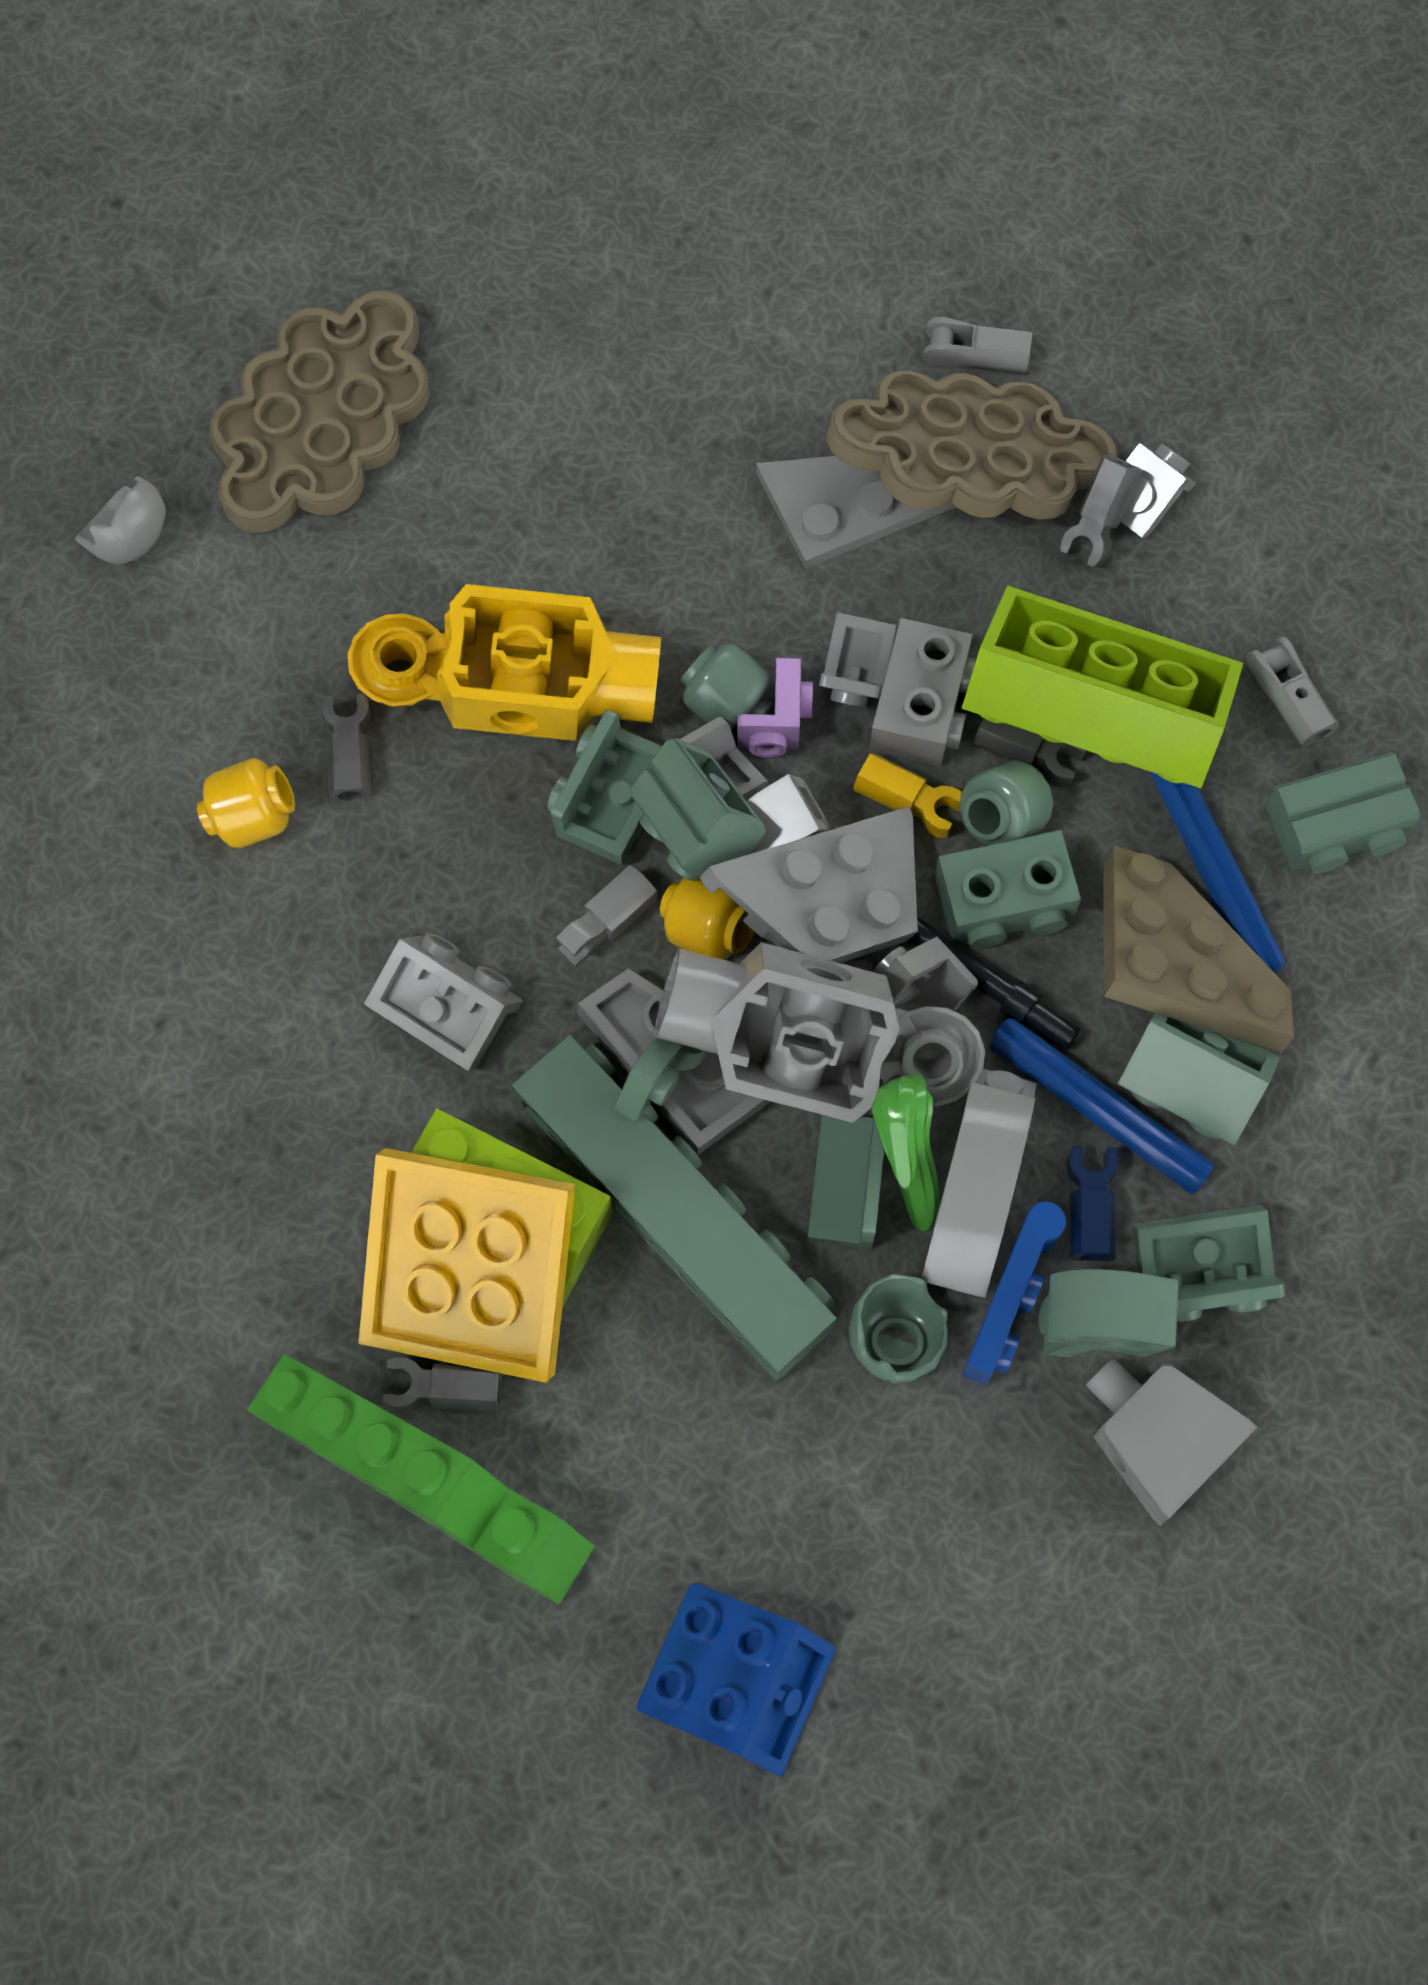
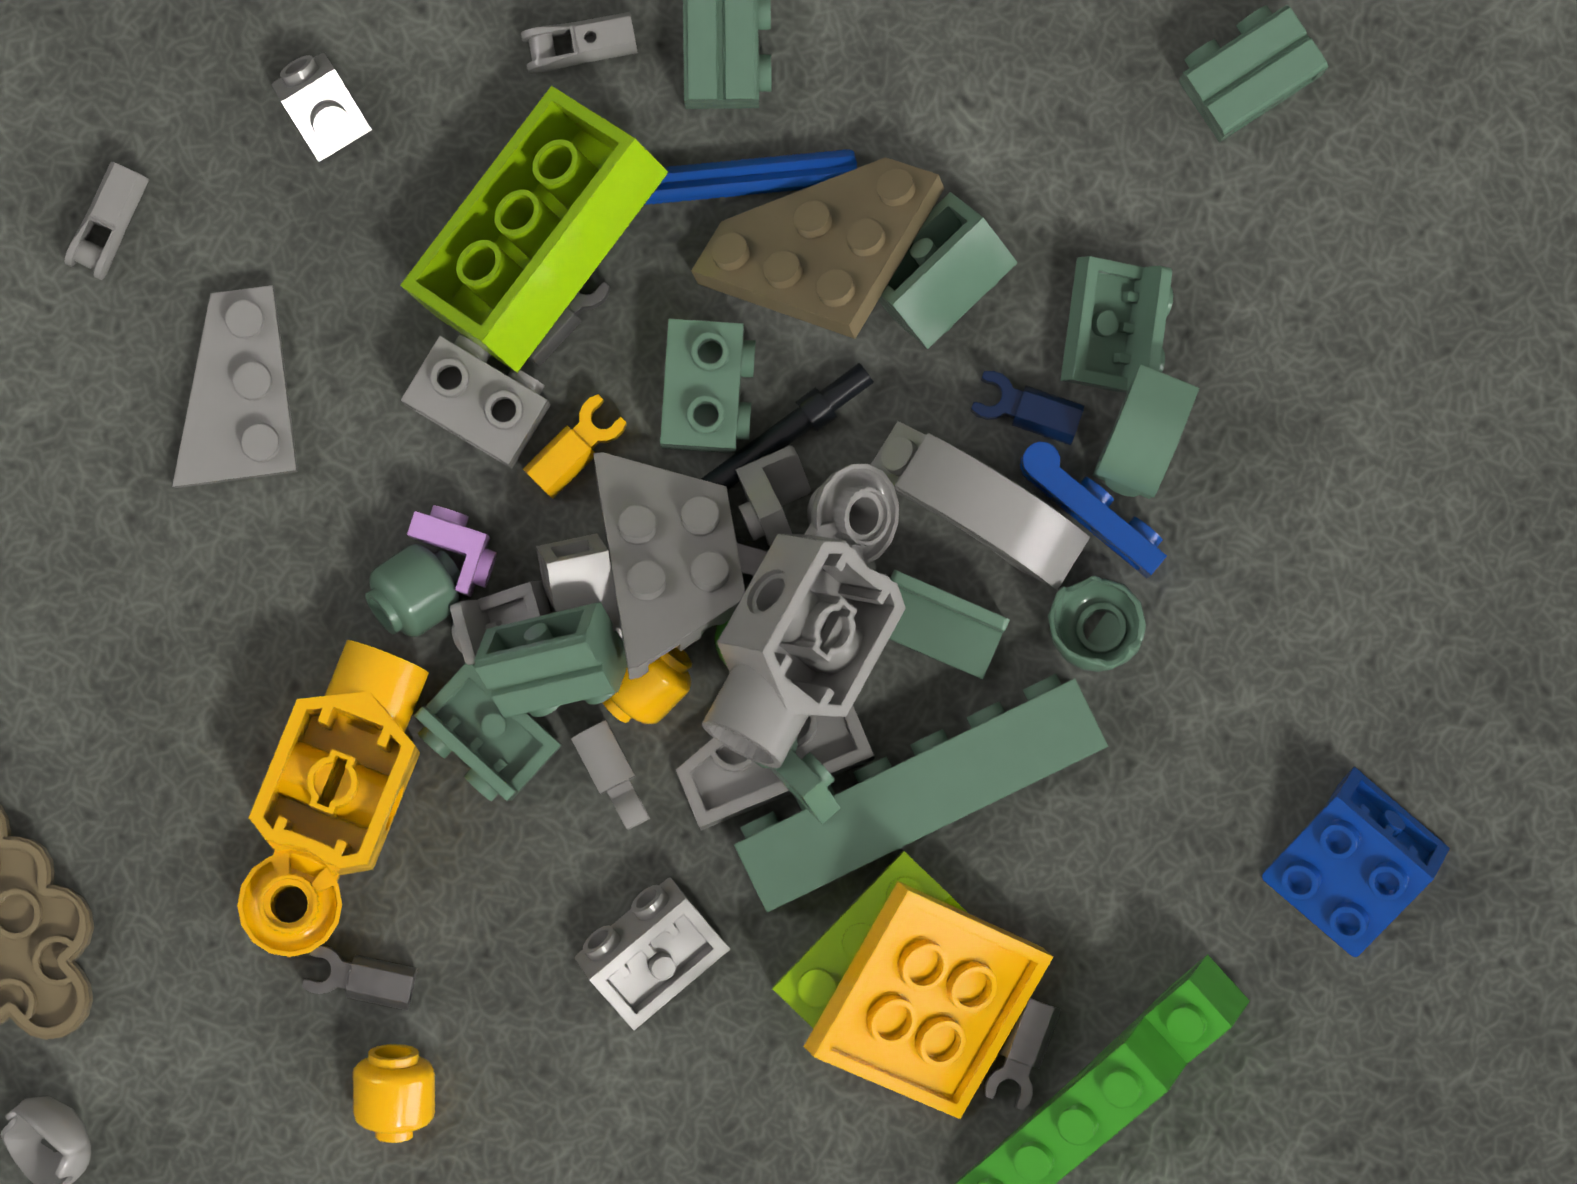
camera: 75 degrees left, 15 degrees up
(858, 659) = (423, 453): light grey bracket -> none
(904, 1121) = (922, 563): bright green piece -> none
(969, 444) = (228, 266): dark tan plate -> none
(1006, 803) = (620, 360): sand green head -> none
(1102, 508) = (336, 159): flat silver bar -> none
(1102, 1105) = (936, 368): blue axle -> none
(1165, 1434) = (1258, 417): light grey torso -> none

